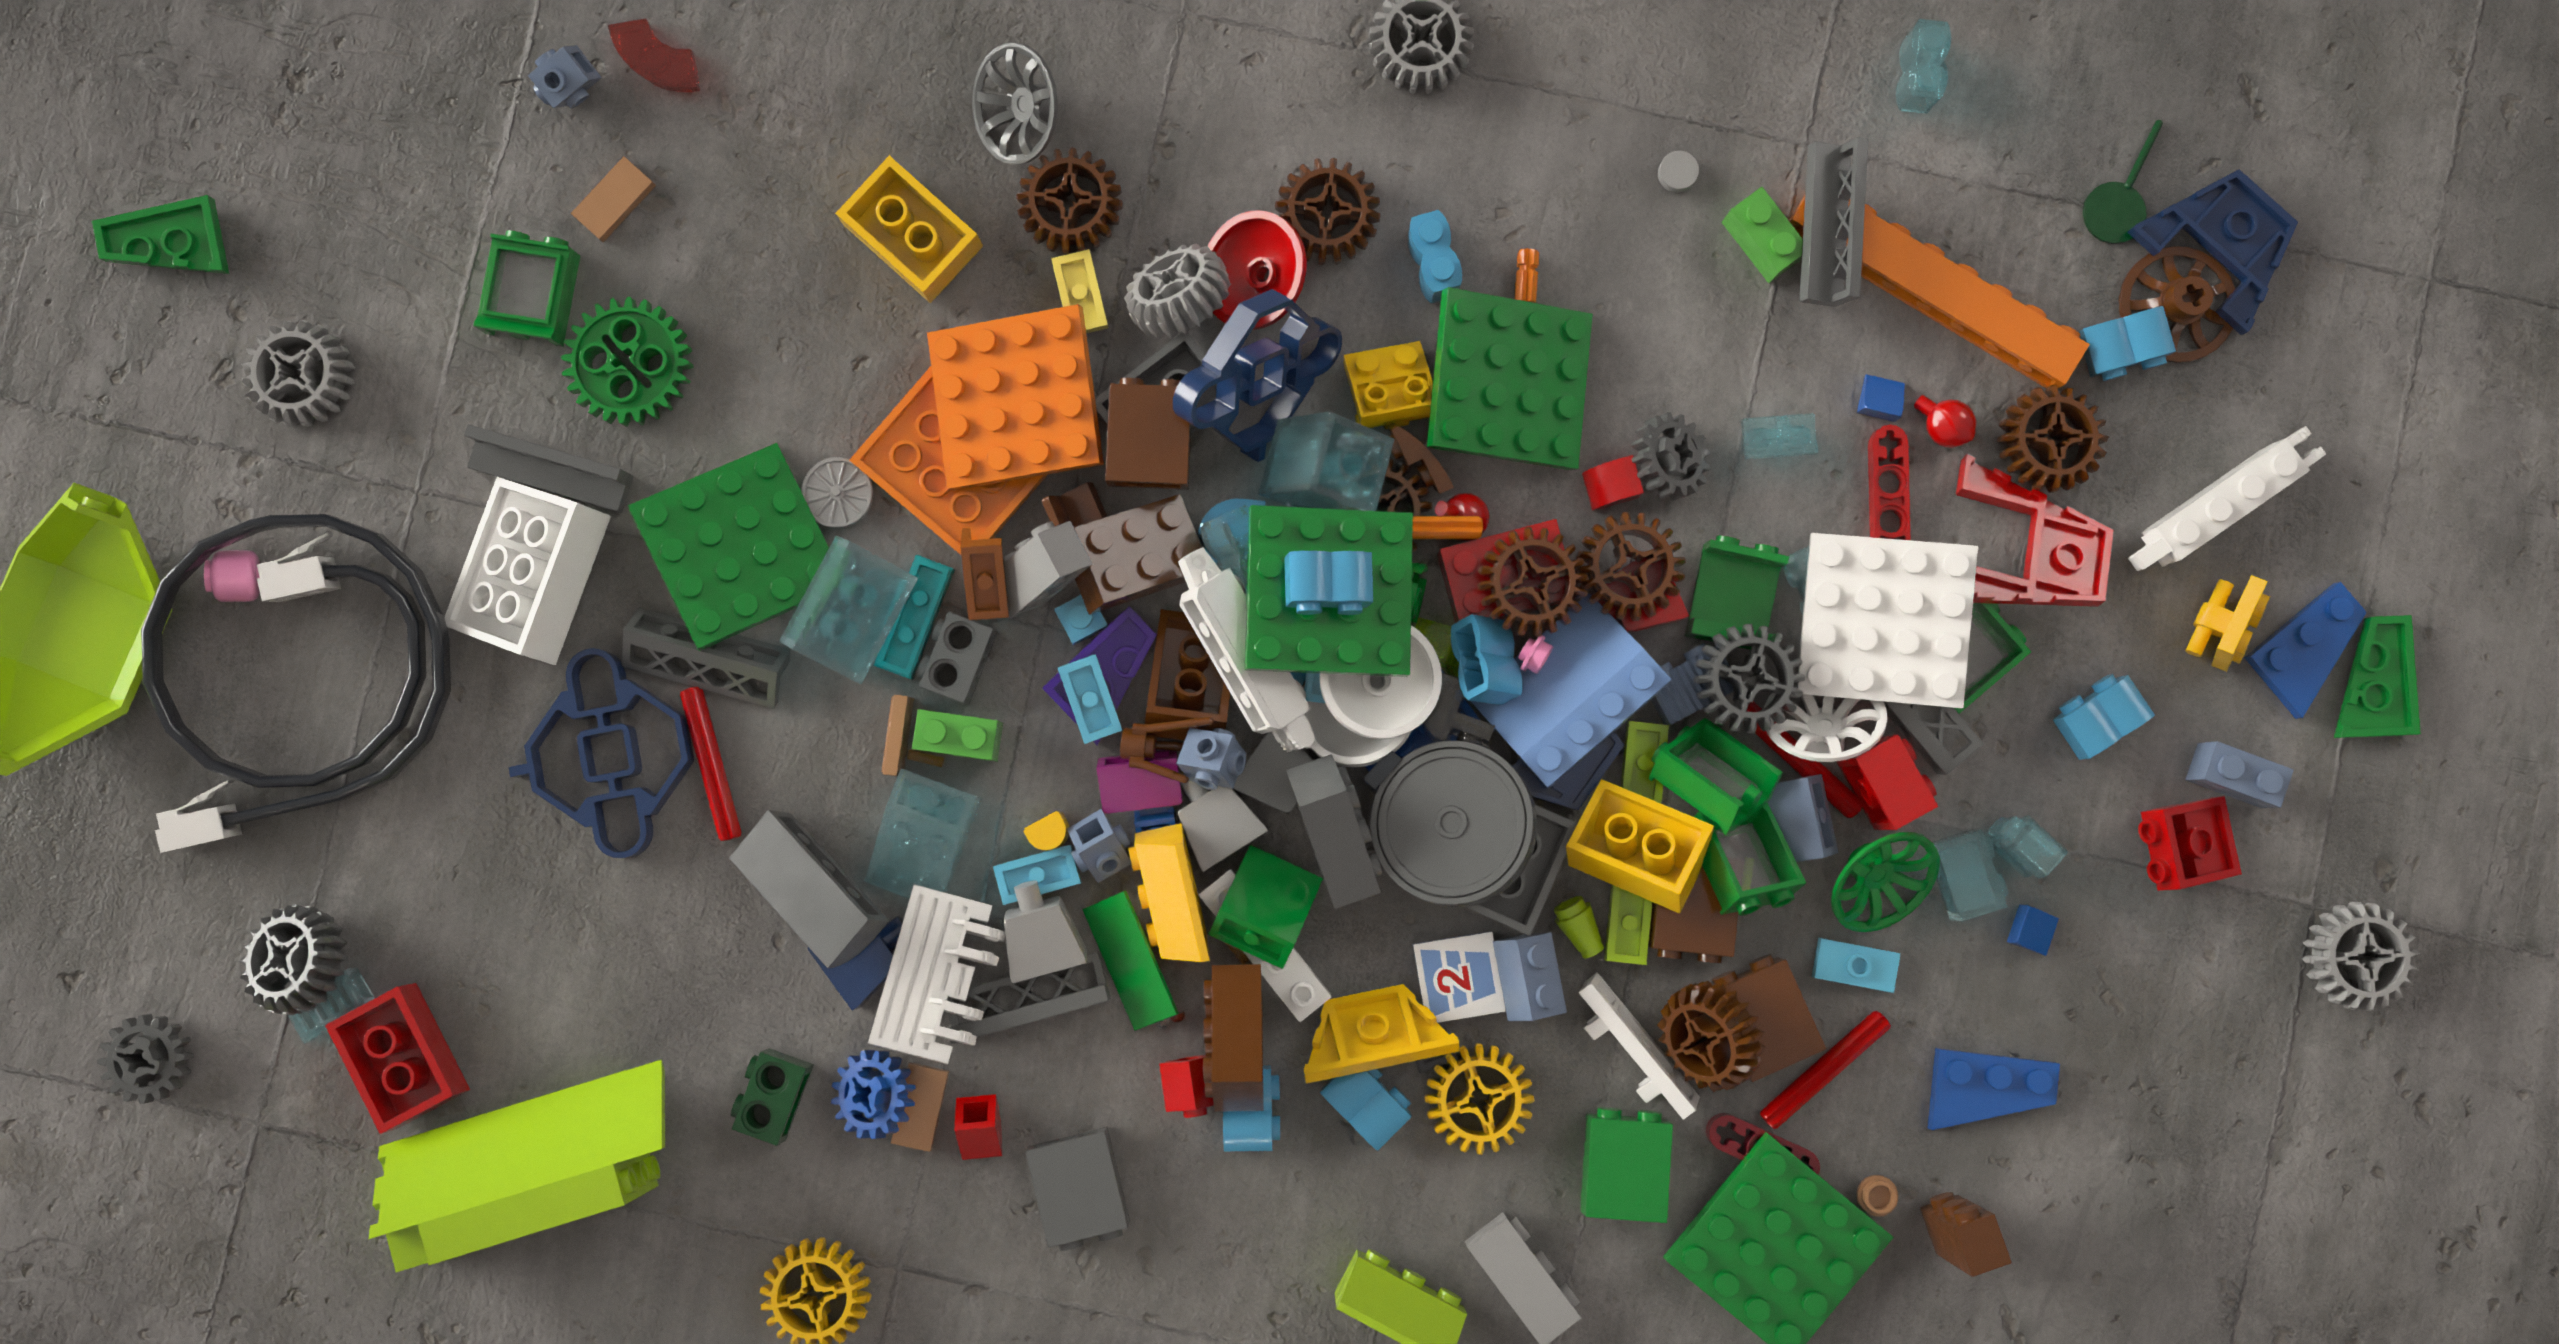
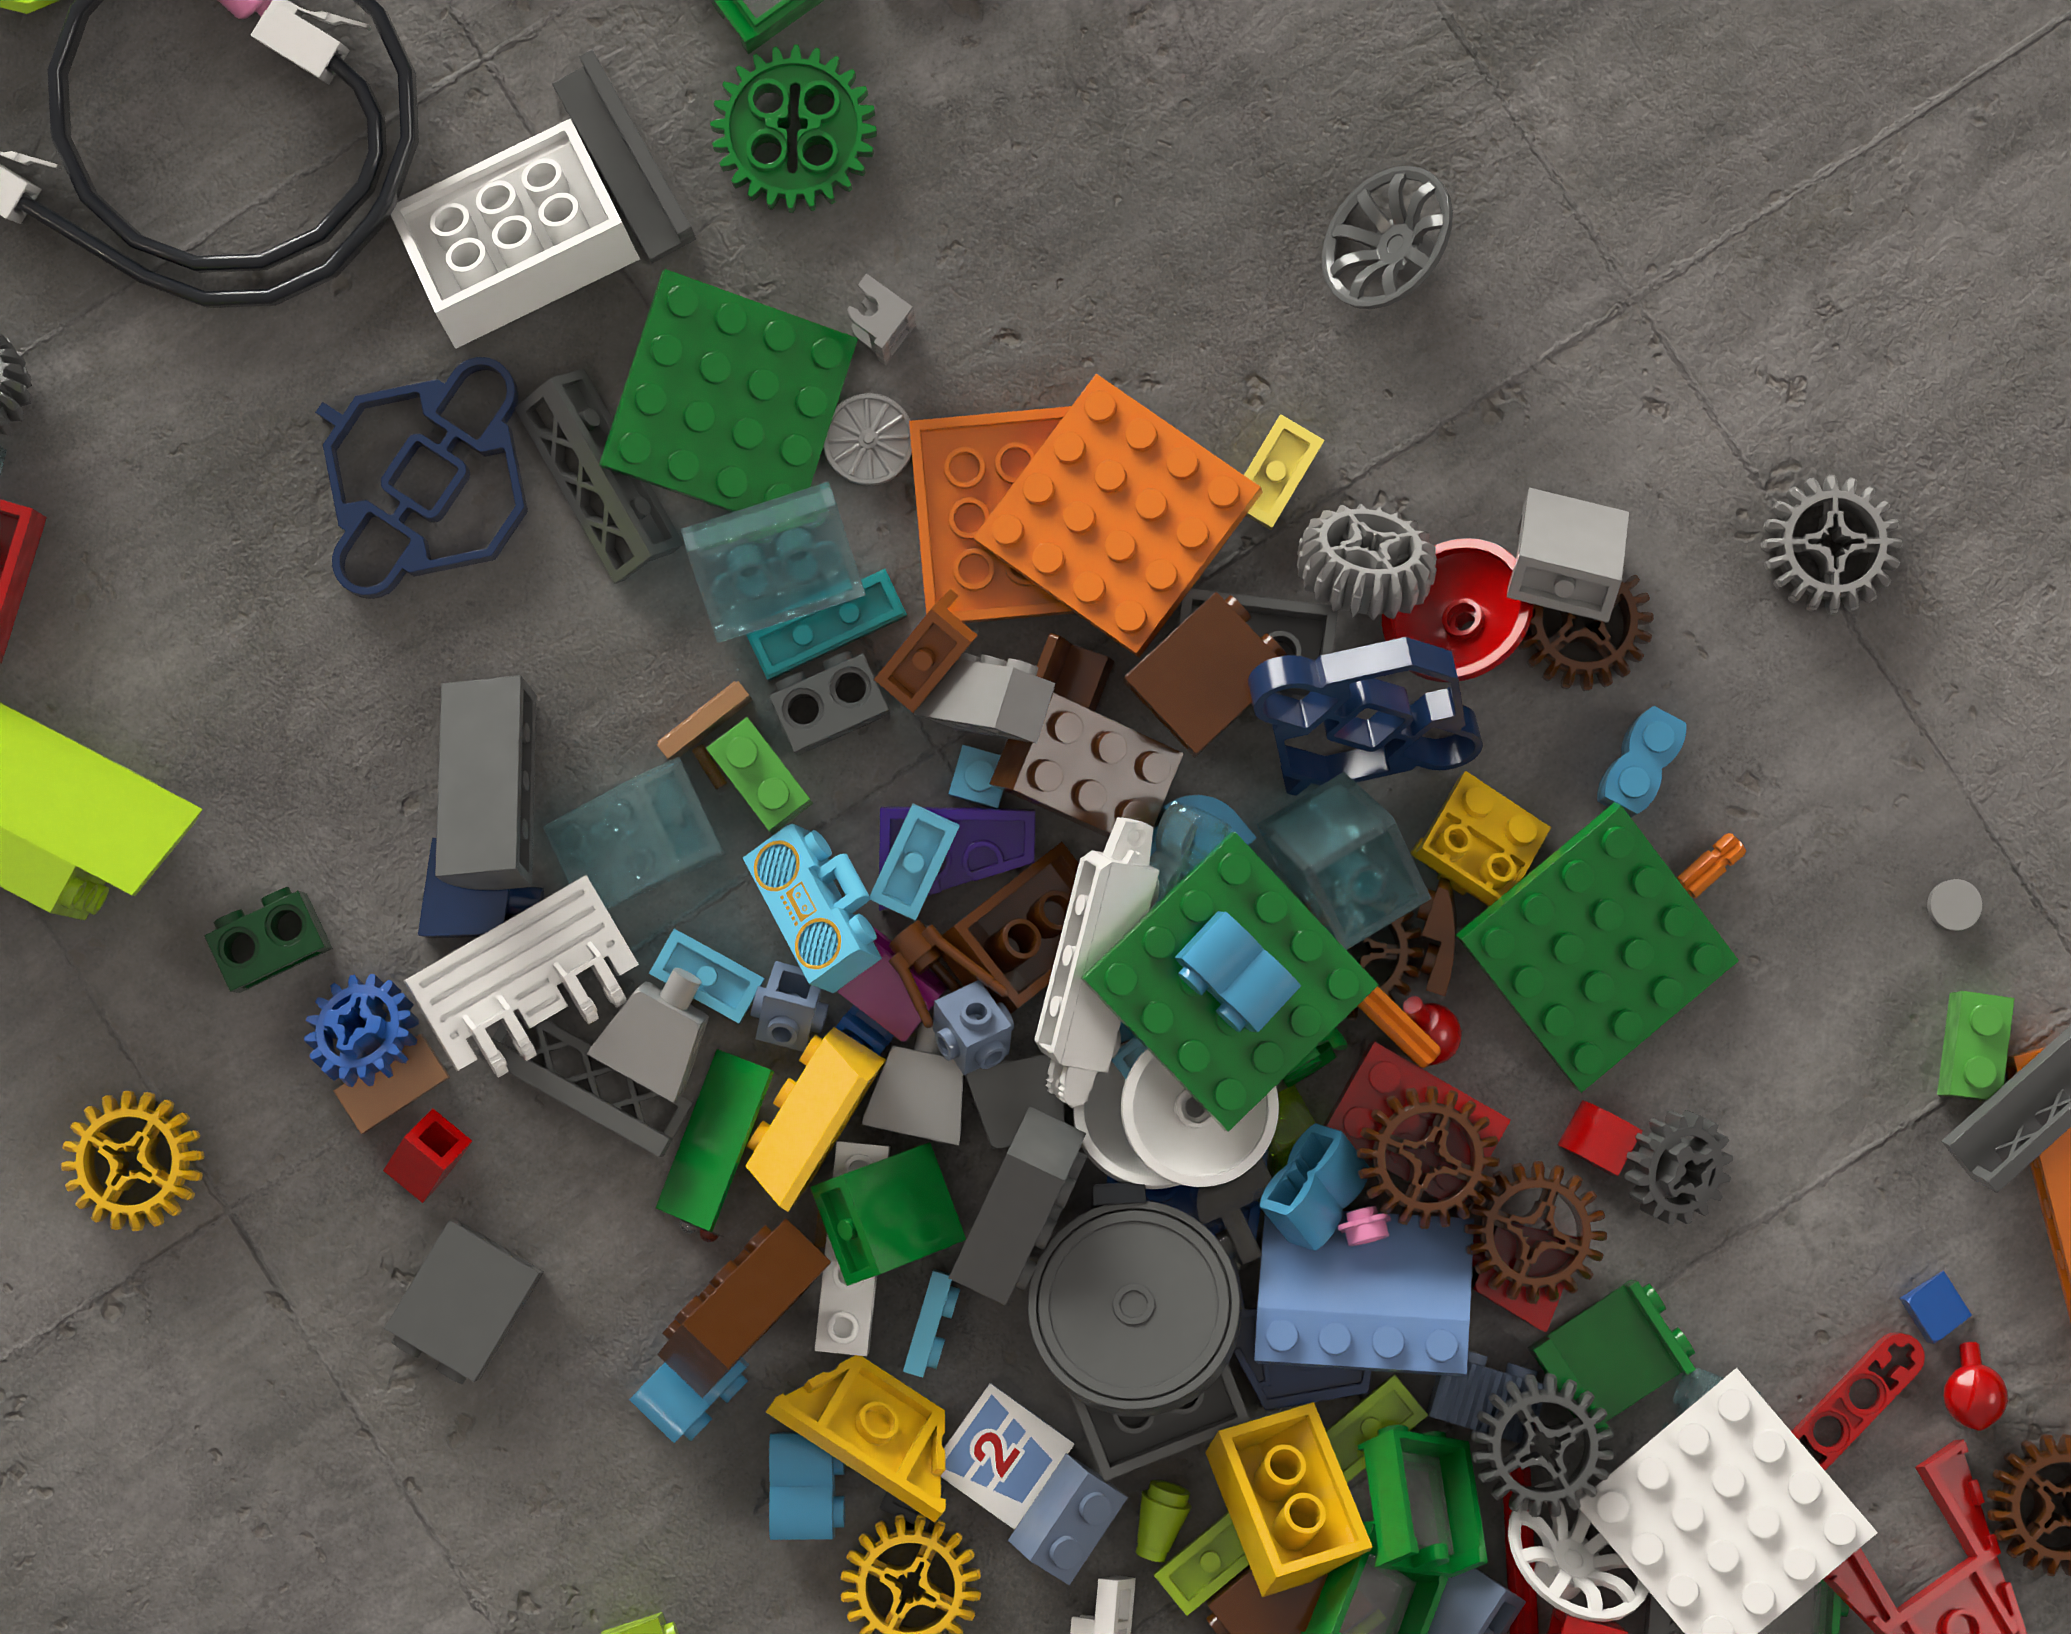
camera: 45 degrees right, 0 degrees up
(710, 764) = (508, 578): red axle -> none
(780, 413) = (885, 321): none -> light grey hinge
(909, 229) = (1175, 260): yellow brick -> none
(1048, 832) = (755, 947): yellow brick -> none
(1053, 200) = (1335, 360): reddish brown gear -> none
(1055, 781) = (809, 909): none -> medium azure piece
(1185, 1086) = (652, 1305): red brick -> none
(1285, 179) = (1569, 555): none -> light grey panel
(1358, 959) = (925, 1345): none -> medium azure plate
(1779, 436) = (1800, 1248): clear light blue hips -> none

